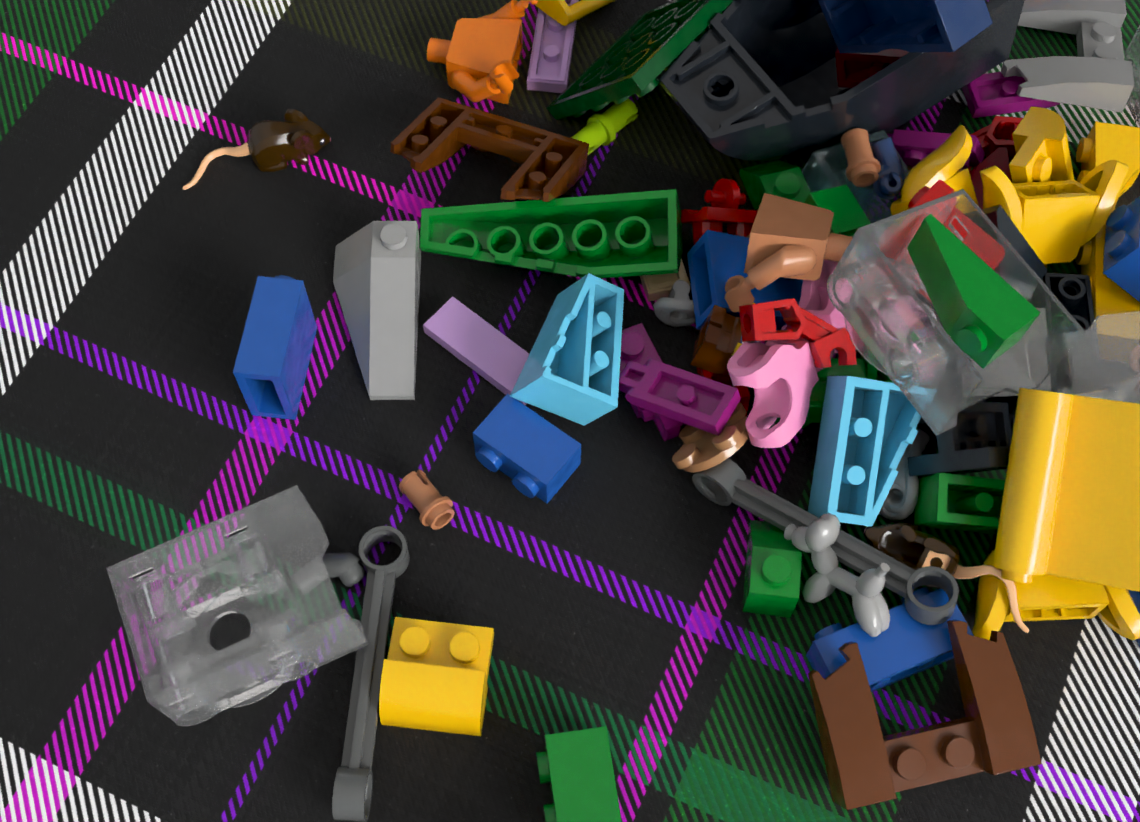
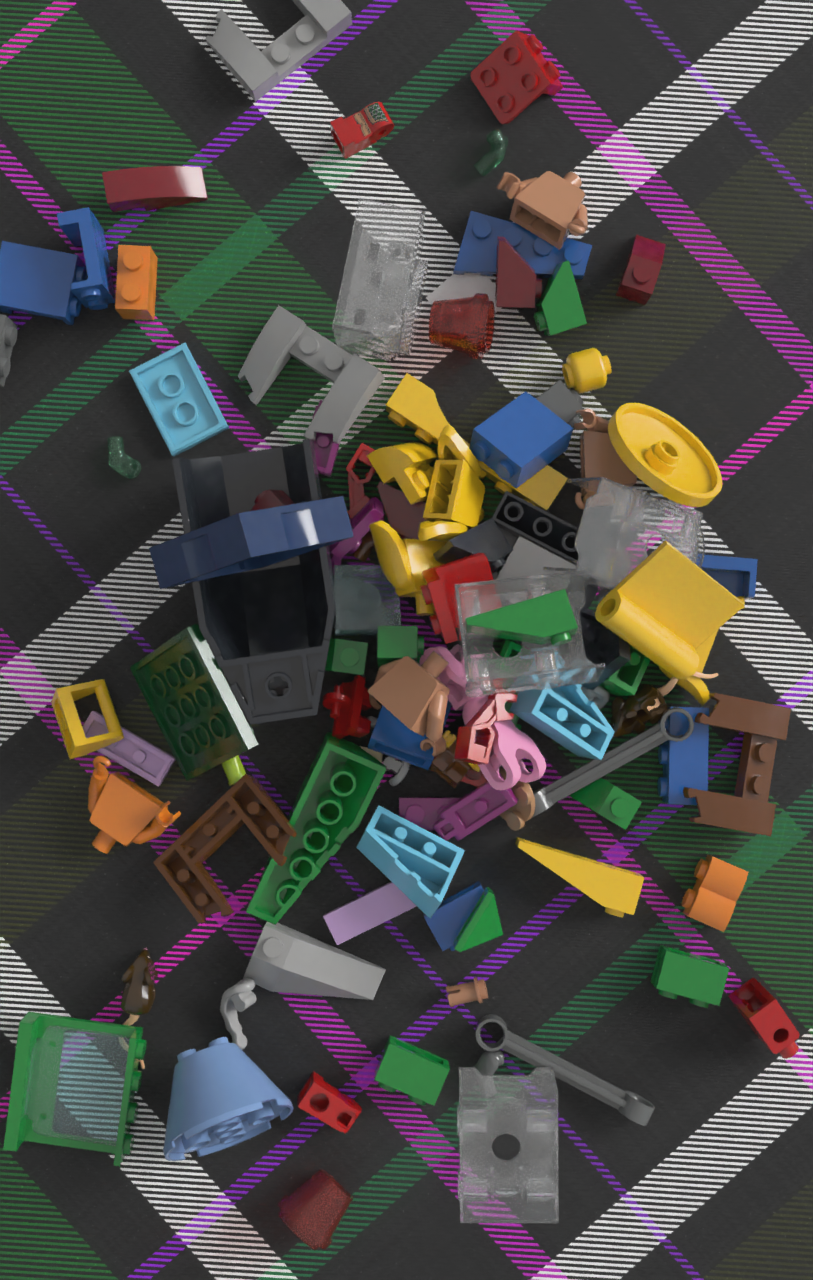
camera: 65 degrees left, 25 degrees up
(64, 418) = (315, 1209): none -> clear red piece
(138, 118) = (75, 1084): none -> clear light blue panel
(166, 248) = (219, 1101): none -> medium blue cone
(210, 390) = (328, 1104): none -> red leg
(276, 347) = (323, 1055): blue brick -> none
(292, 455) = (411, 1071): none -> green brick
(311, 237) = (237, 999): none -> light grey piece
(436, 676) = (585, 1032): yellow brick -> none
(534, 452) = (481, 924): none -> green slope
(658, 615) = (604, 883): none -> yellow slope
(720, 773) = (714, 893): none -> orange brick
(862, 165) = (358, 602): nougat pin -> none
(867, 601) = (664, 764): light grey piece -> none
(892, 173) = (375, 584): dark blue arm -> none

